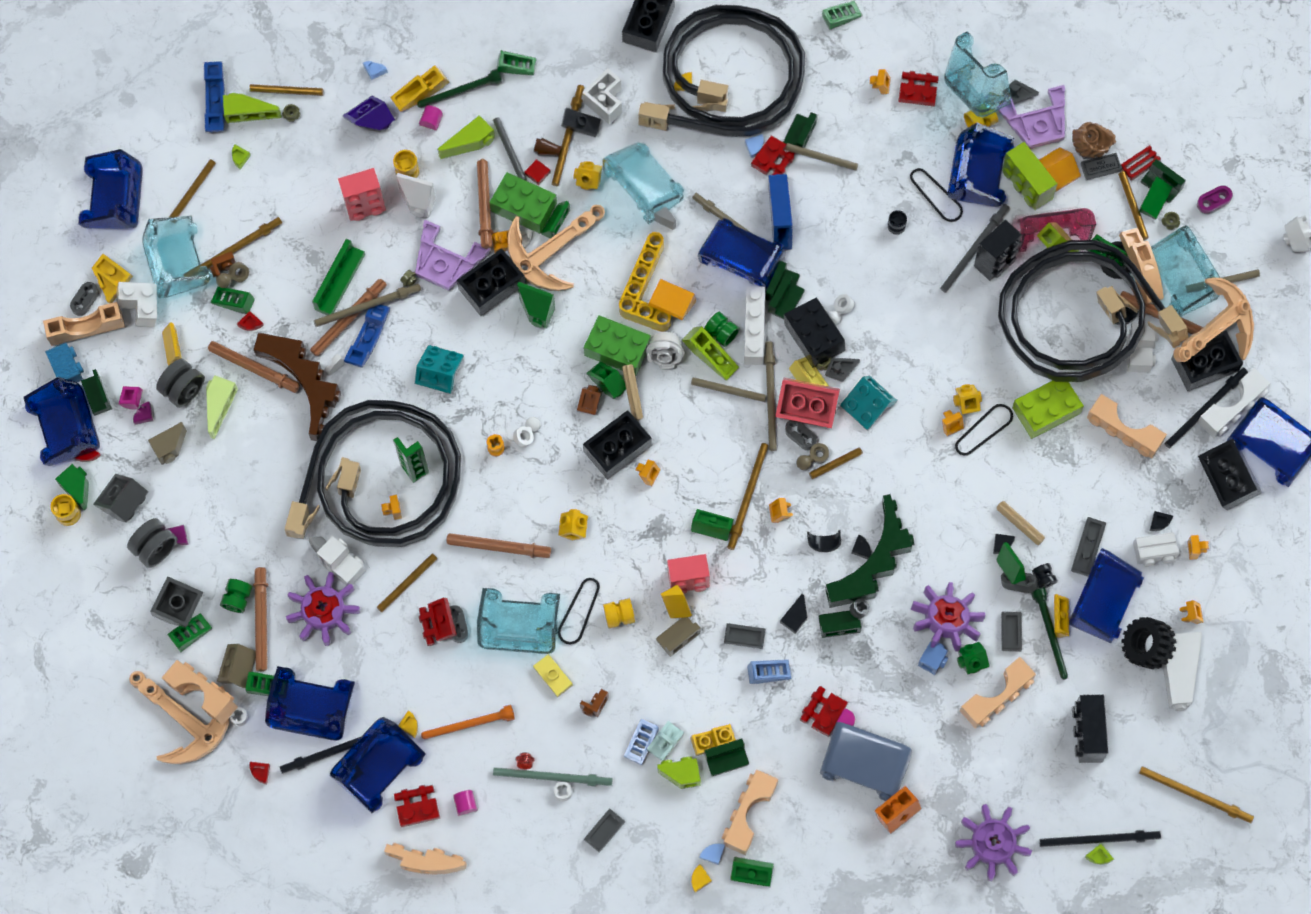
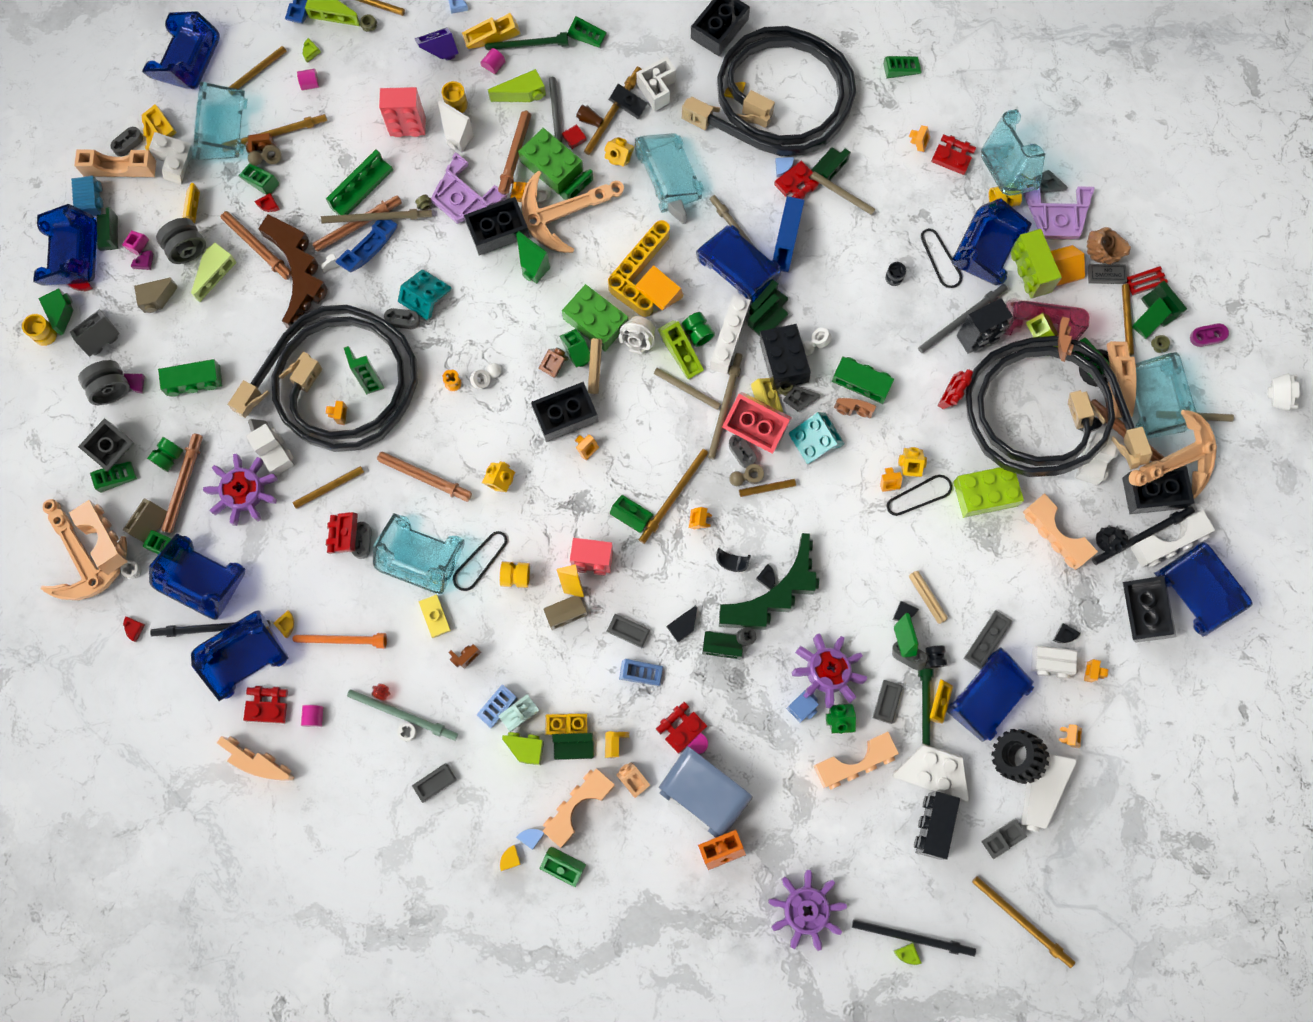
camera: 15 degrees right, 5 degrees up
(233, 515) = (190, 377): none -> green brick
(248, 186) = (308, 79): none -> dark pink brick
(423, 398) = (403, 315): none -> dark grey beam
(763, 743) = (612, 743): none -> yellow tile
(793, 771) = (632, 779): none -> light nougat bracket
(888, 363) = (846, 406): none -> nougat slope
(896, 333) = (862, 379): none -> green brick
(988, 318) = (955, 389): none -> red plate
(1074, 678) = (935, 771): none -> white wing
(1078, 247) = (1064, 340): none -> nougat slope
(1157, 724) = (1004, 838): none -> dark grey slope
(1183, 422) = (1117, 545): none -> black gear

